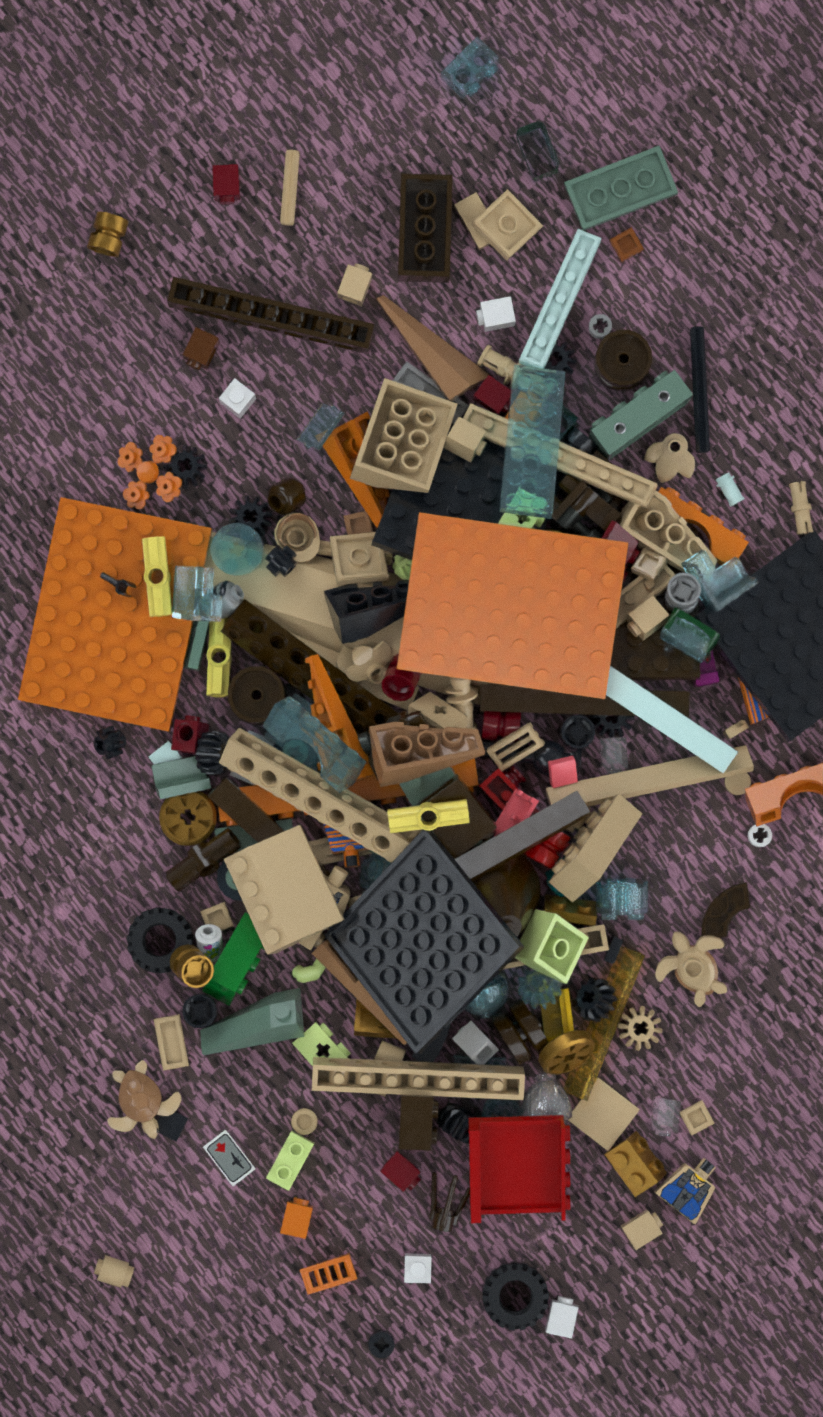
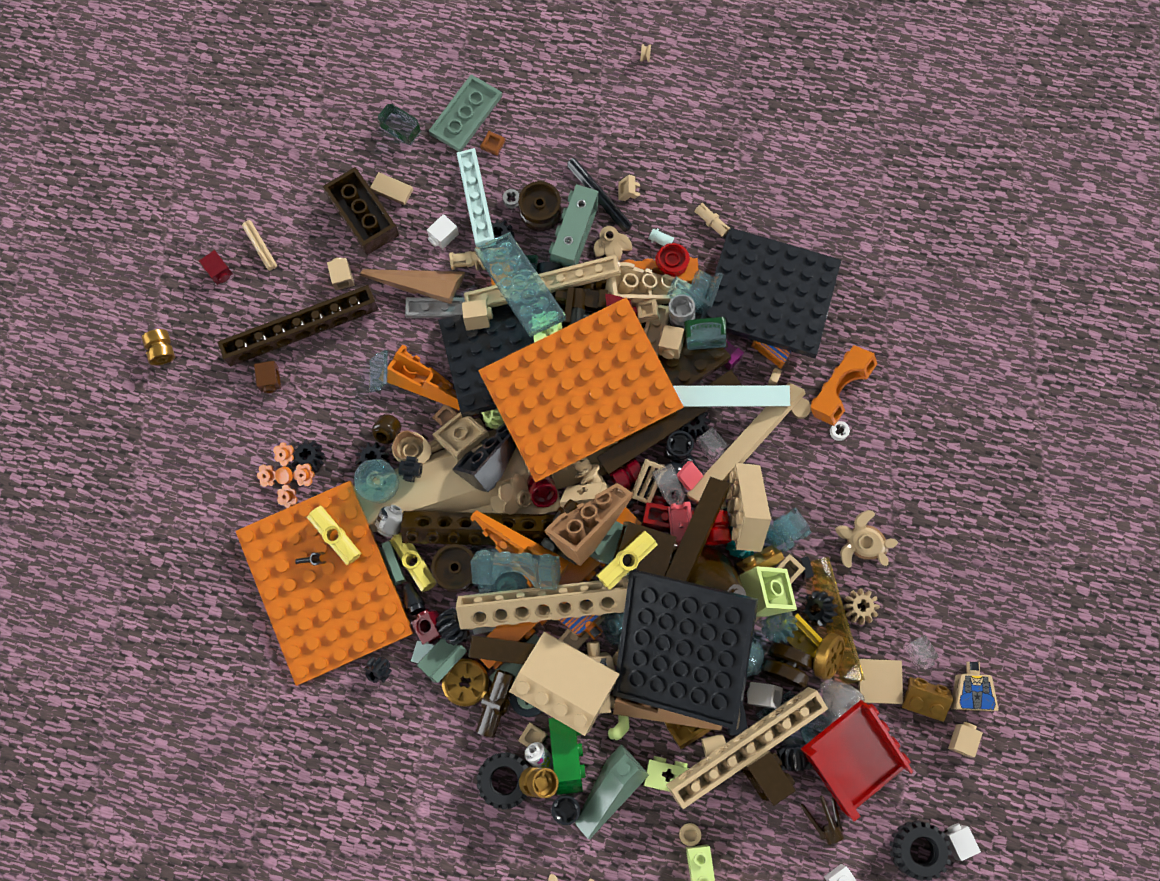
camera: 30 degrees left, 10 degrees down
(171, 1042) = (561, 846): tan tile -> none
(192, 696) = (413, 601): none -> black cone
(194, 595) = (367, 529): clear light blue panel -> none
(237, 398) = (312, 390): white brick -> none
(401, 1172) = (780, 821): dark red brick -> none
(403, 439) = (436, 340): tan slope -> none
(465, 64) = (320, 105): clear light blue brick -> none
(493, 396) = (475, 279): dark red brick -> none
(507, 225) = (411, 177): tan tile -> none
(533, 765) = (668, 482): none -> clear piece
(696, 1117) = (941, 639): tan tile -> none
(718, 526) = (672, 259): none -> red piece
(723, 909) = (853, 491): dark brown tile -> none
(734, 405) = (627, 188): none -> tan tile

